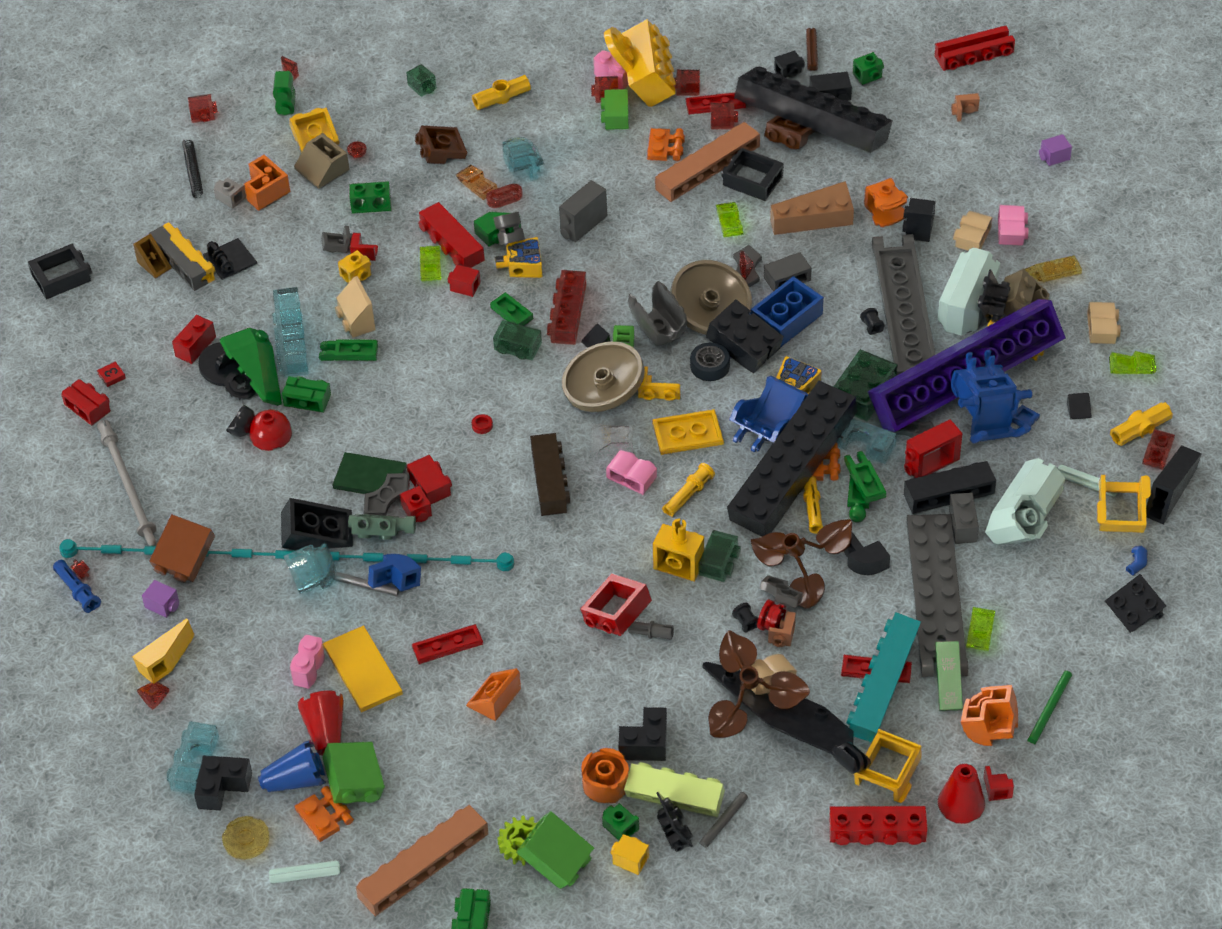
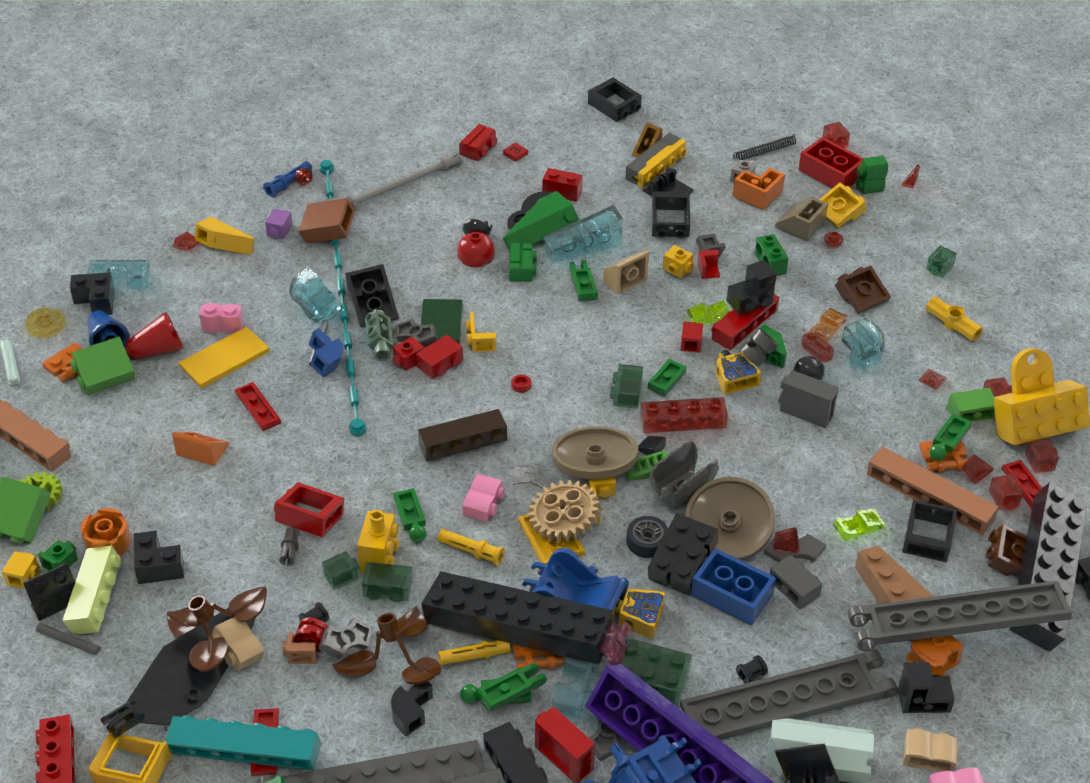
camera: 75 degrees right, 5 degrees down
(251, 120) = (830, 163): none -> red brick
(280, 247) = (679, 201): none -> black window
(408, 449) = (480, 341): none -> yellow bracket
(438, 210) = (755, 290): none -> black brick
(533, 209) = (810, 366): none -> black hair
(569, 128) = (932, 379): none -> clear red slope
(633, 530) = (411, 514): none -> green plate
(653, 407) = (564, 511): none -> tan gear
(656, 130) = (949, 437): none -> green plate
(690, 126) = (976, 469): none -> clear red slope
(696, 590) = (340, 570): none -> clear green brick
(847, 388) = (614, 644): none -> clear pink plate
(867, 166) = (959, 613): none -> dark grey hinge

